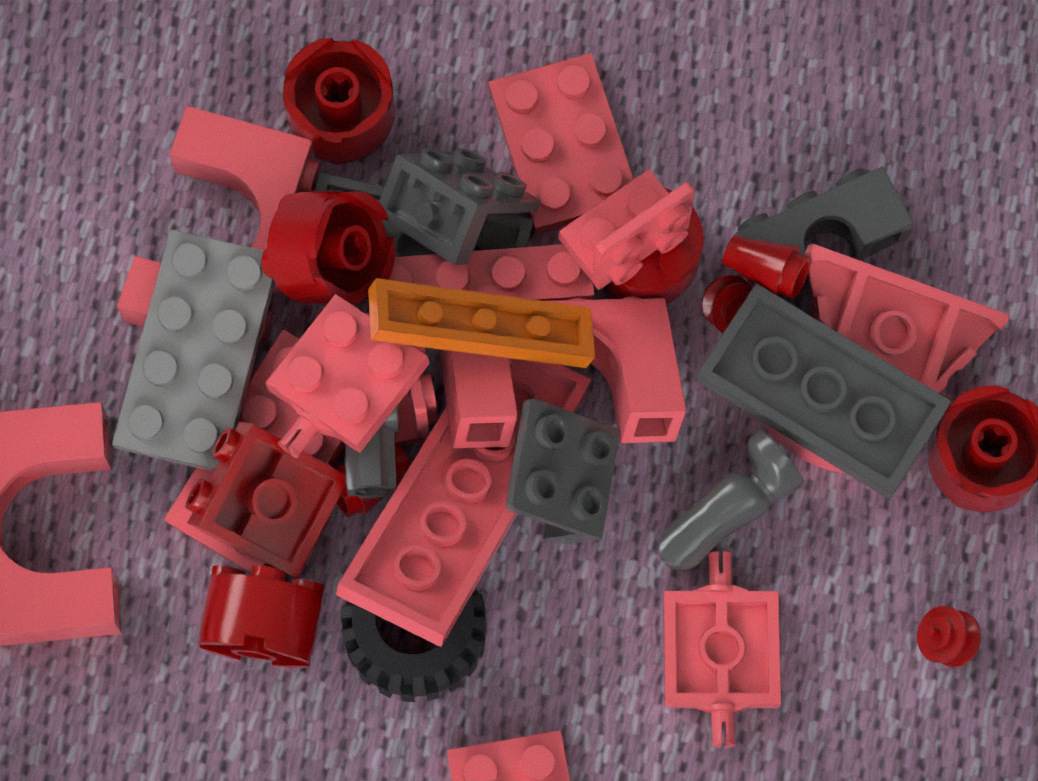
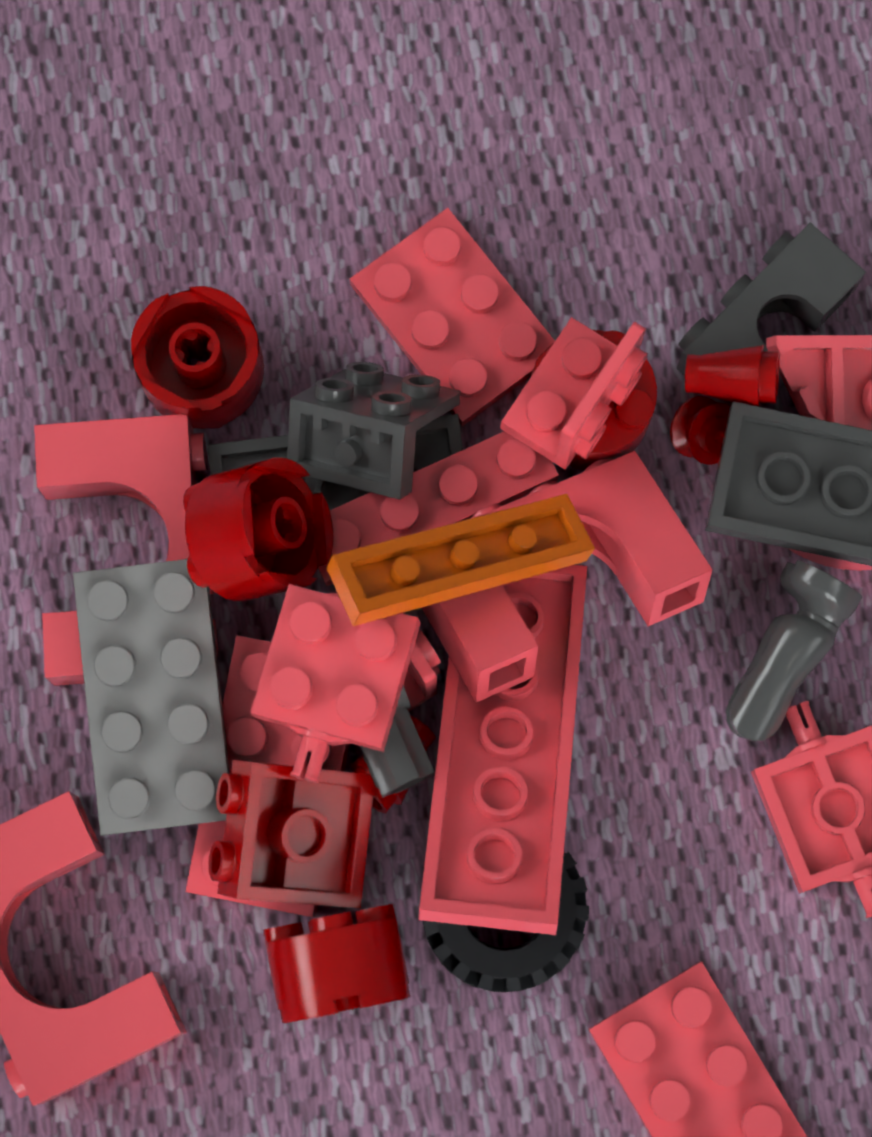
camera: 20 degrees left, 5 degrees up
(562, 472) = (603, 683): dark grey bracket -> none

